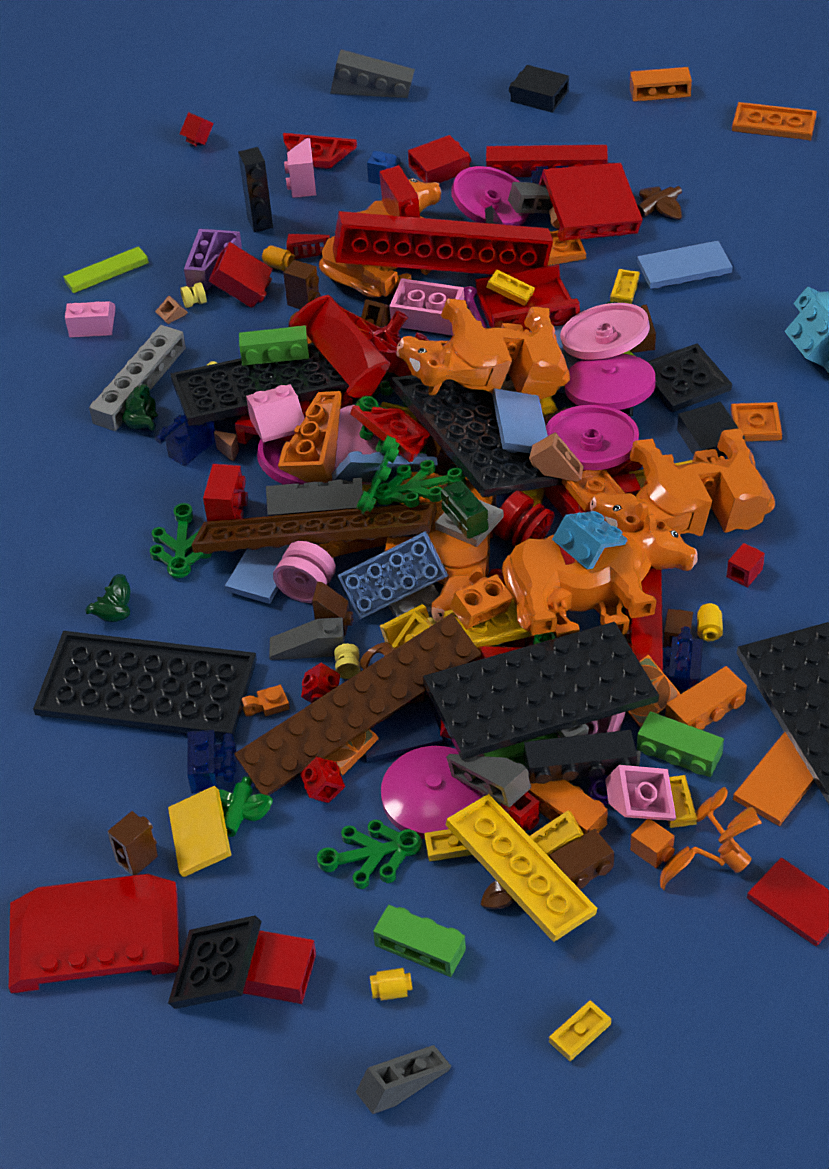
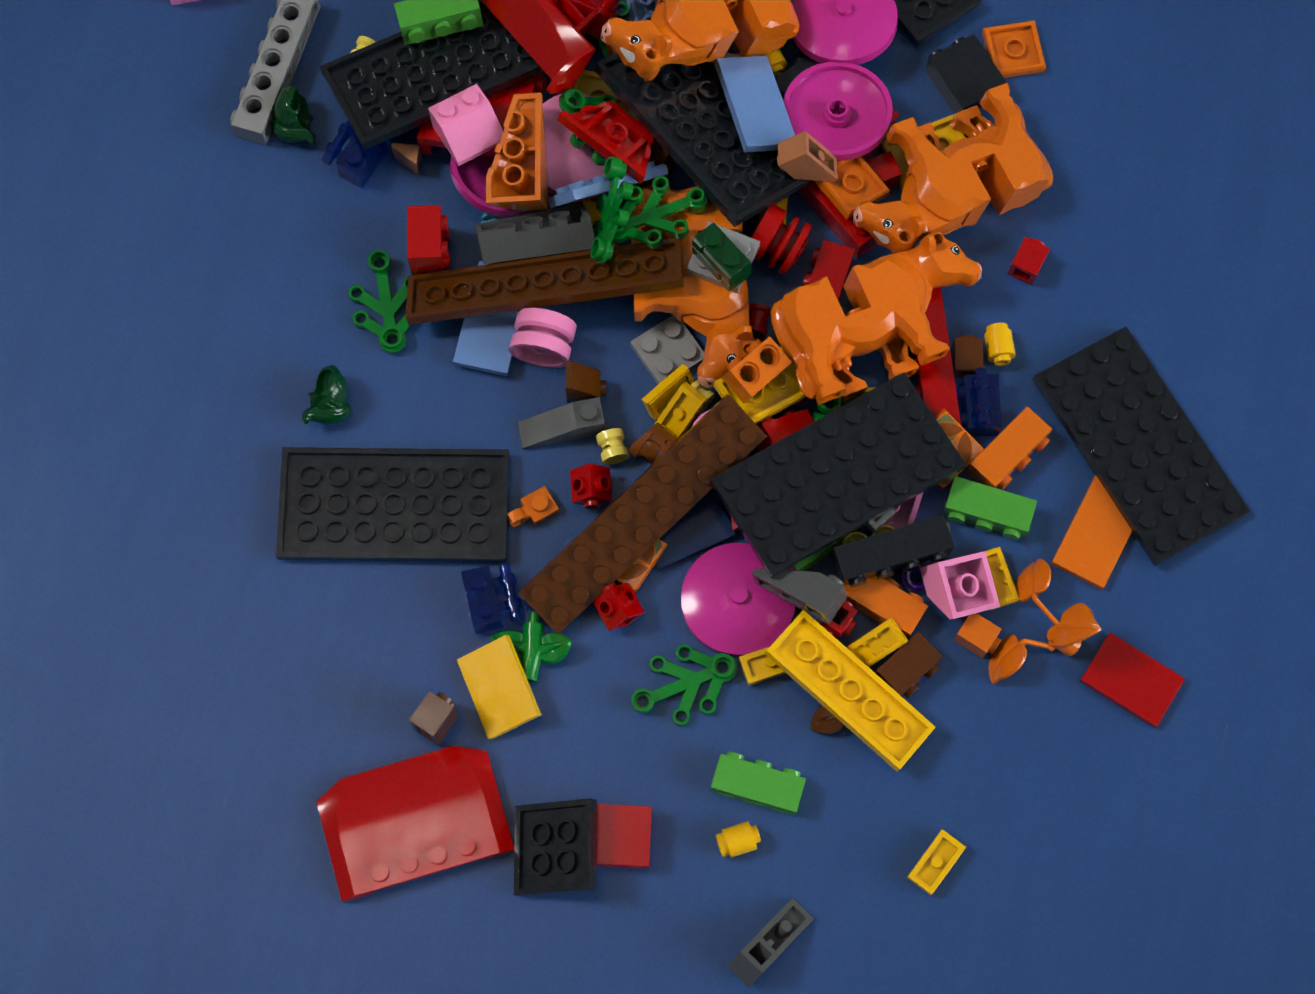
camera: 15 degrees left, 25 degrees up
(393, 575) = (646, 335): medium blue tile -> none
(586, 537) = (867, 279): dark azure bracket -> none

